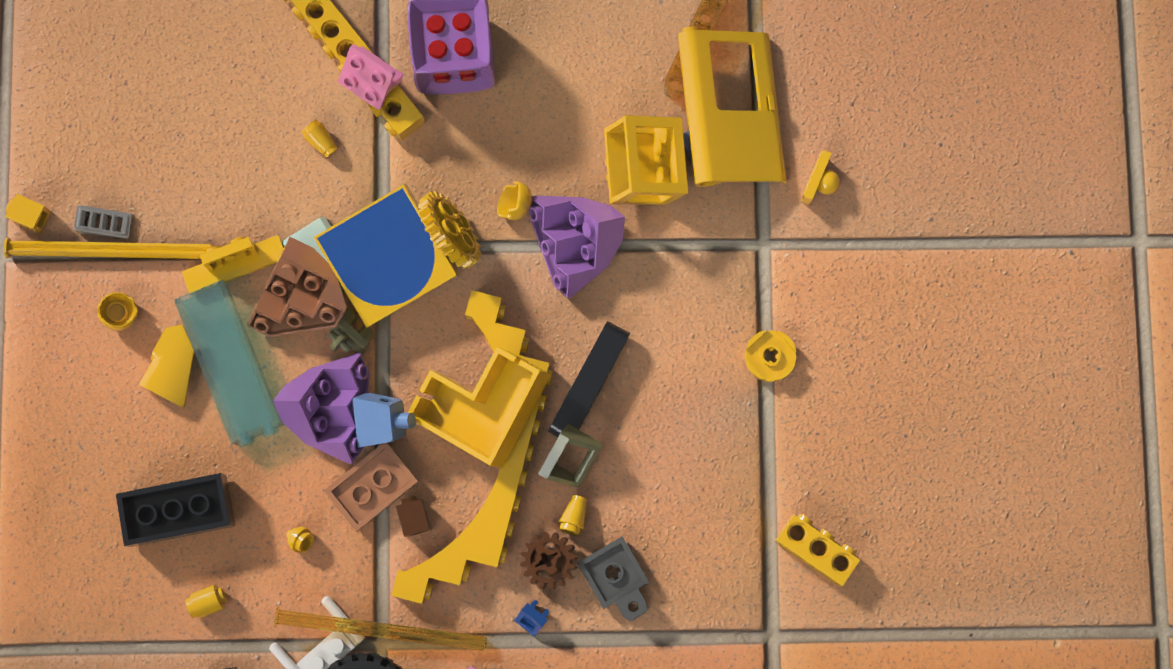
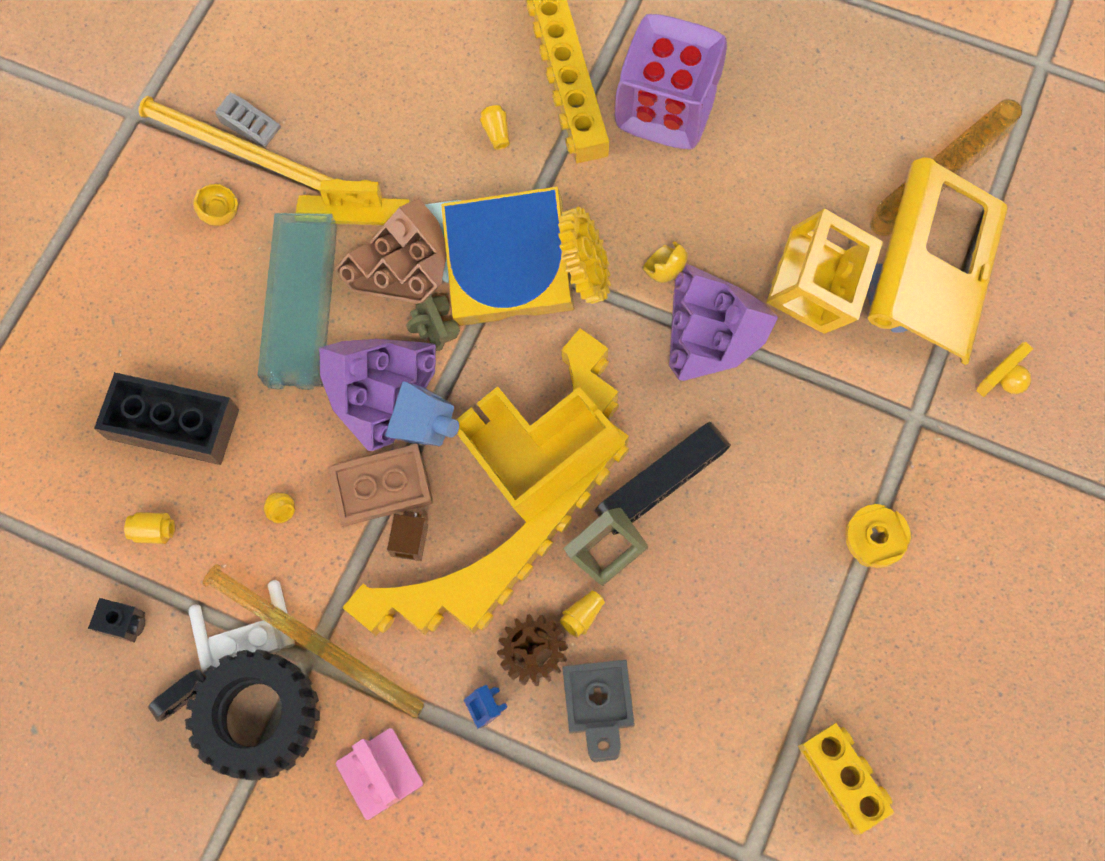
camera: 30 degrees right, 10 degrees down
(27, 213) = (181, 83): yellow brick -> none
(170, 366) = (239, 277): yellow panel -> none
(368, 76) = (572, 78): bright pink bracket -> none

